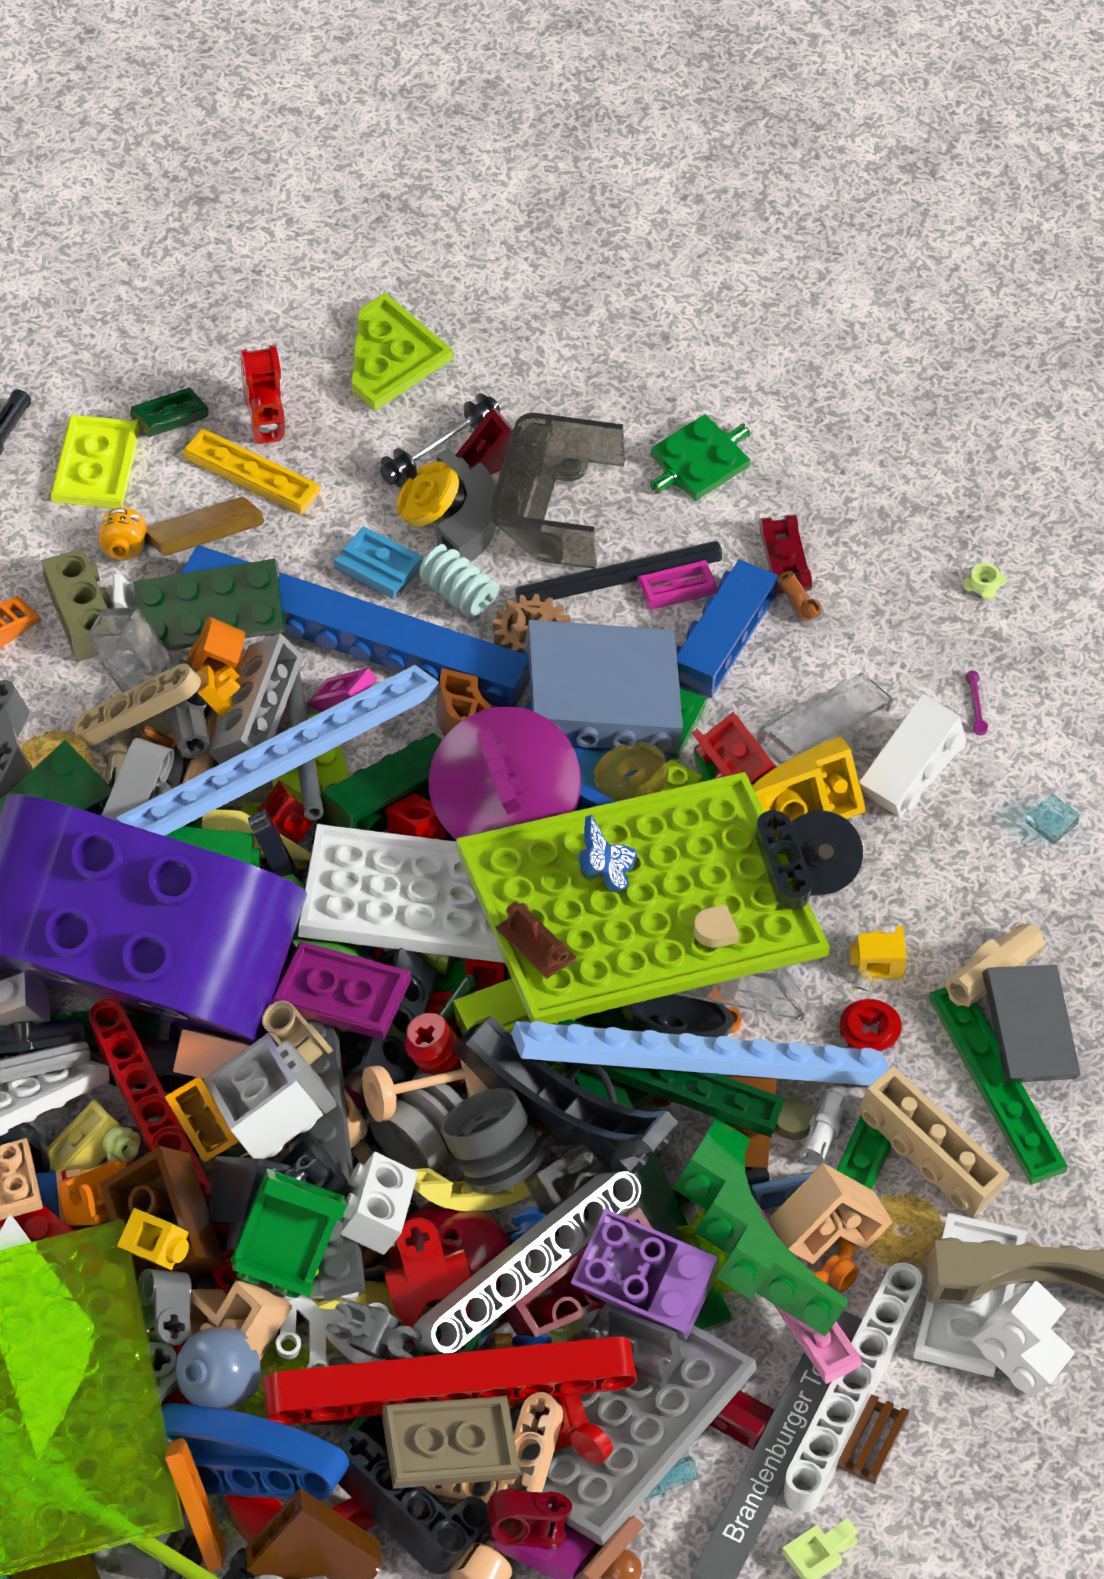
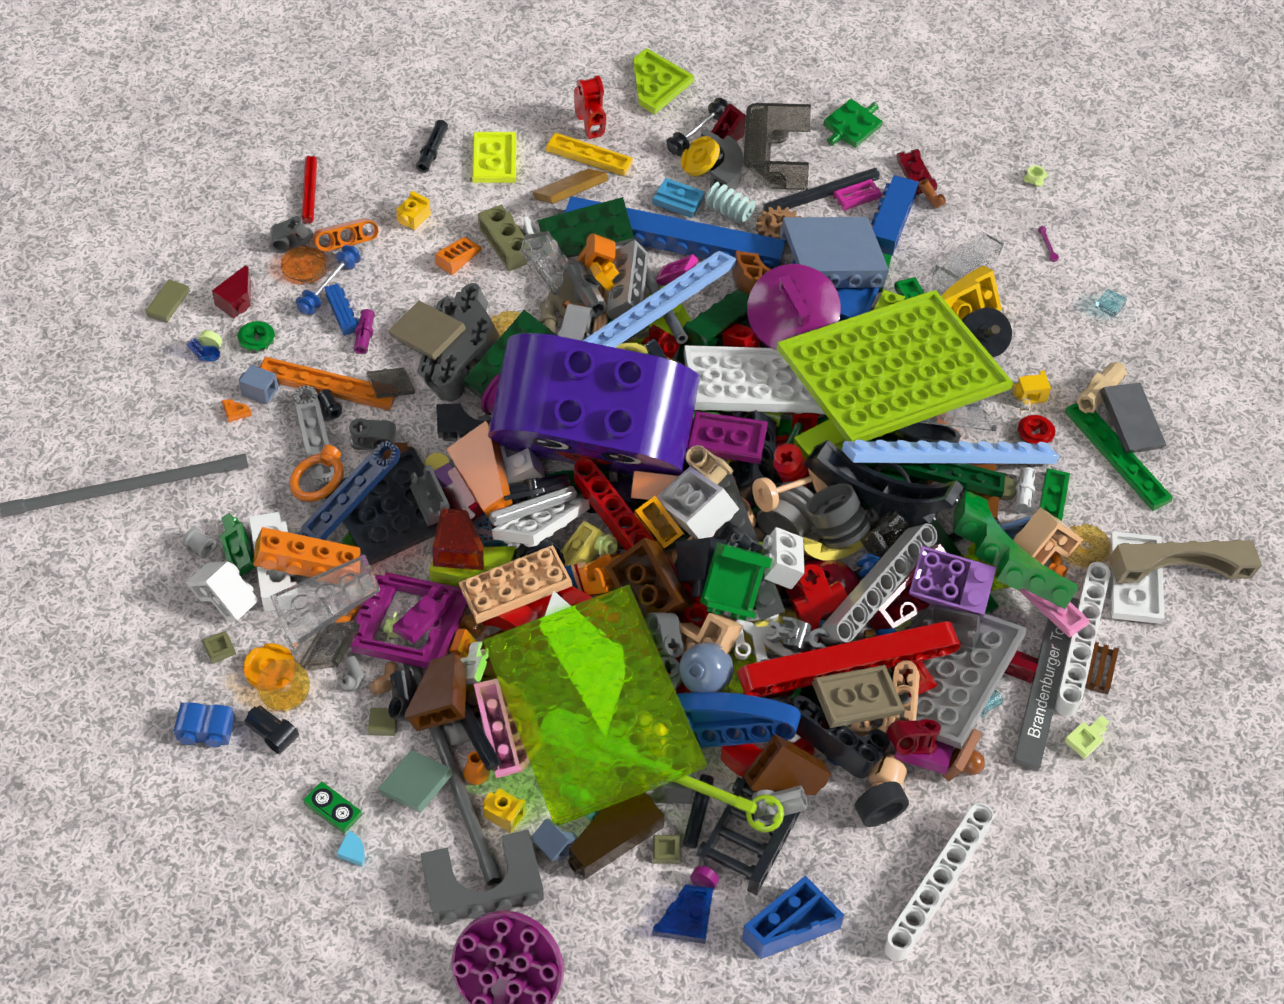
camera: 10 degrees left, 0 degrees up
(123, 531) = (521, 193): light orange head -> none
(137, 704) = (557, 288): tan beam -> none
(154, 1239) = (647, 589): yellow brick -> none
(173, 415) = (536, 125): dark green tile -> none
(196, 1504) = (707, 751): orange tile -> none
(306, 1076) = (721, 480): light grey tile -> none
(535, 940) = (844, 396): copper hinge -> none
(592, 1443) = (941, 688): red tile -> none
(605, 859) = (871, 344): blue animal -> none
(645, 758) = (868, 289): clear yellow tile -> none
(715, 927) = (945, 377): tan tile -> none
(733, 750) = (921, 279): red bracket -> none
(778, 873) = (974, 345): black beam -> none
(913, 756) = (1024, 274): white wedge -> none
(932, 1142) = (1095, 490): tan brick -> none
(1022, 1341) = (1179, 596): white brick -> none

